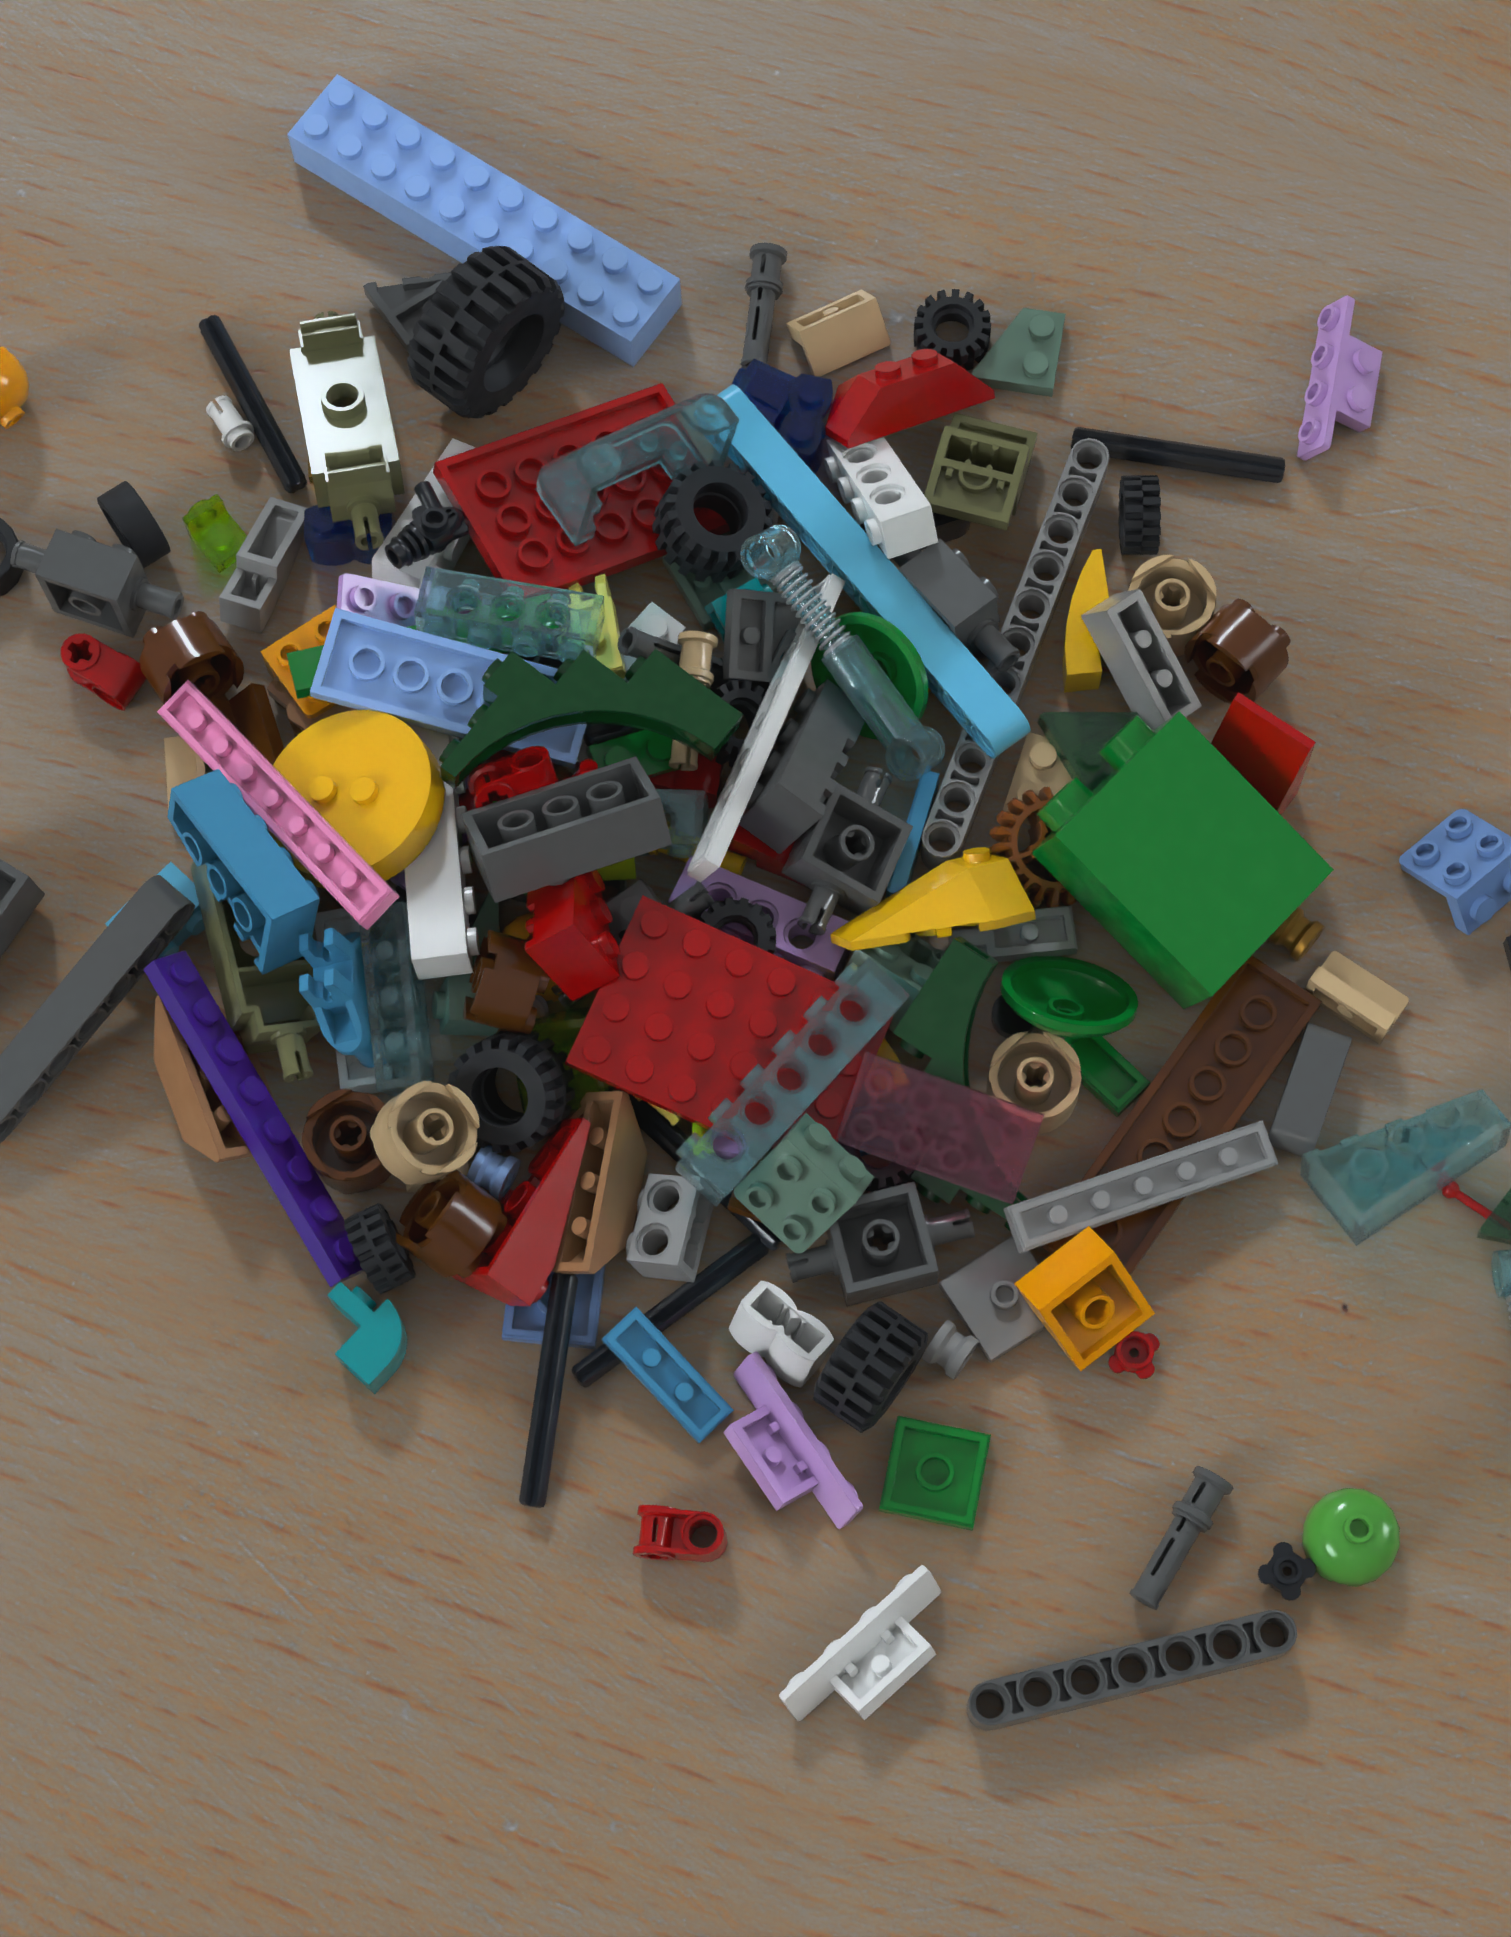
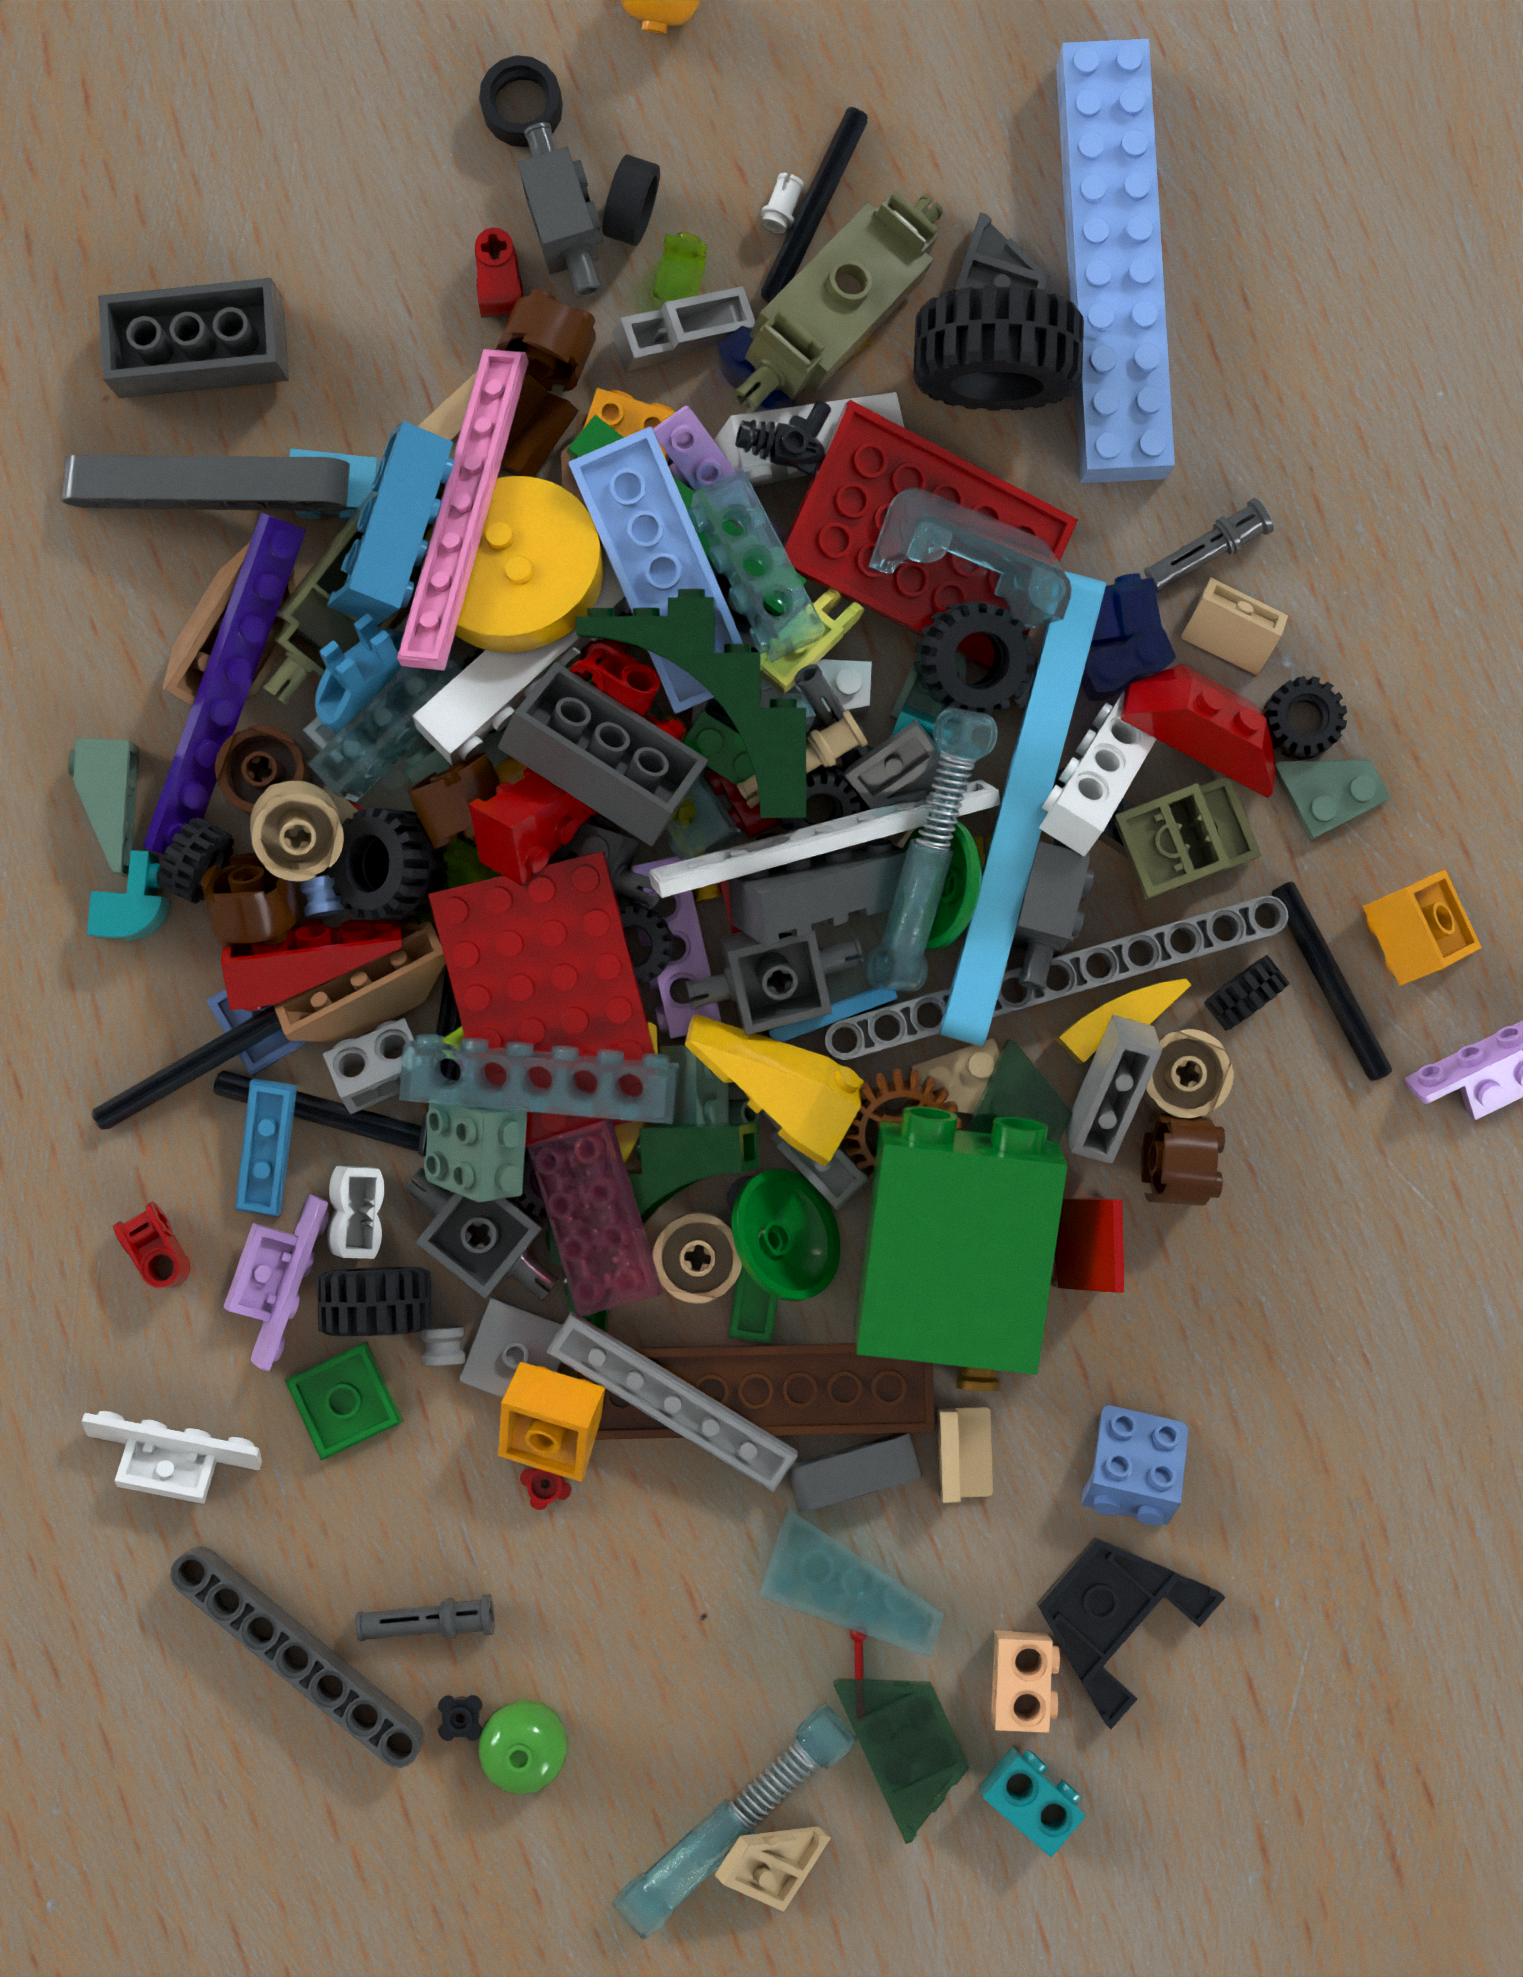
camera: 45 degrees right, 15 degrees up
(259, 1287) = (107, 785): none -> sand green slope
(1185, 361) = (1421, 928): none -> light orange slope

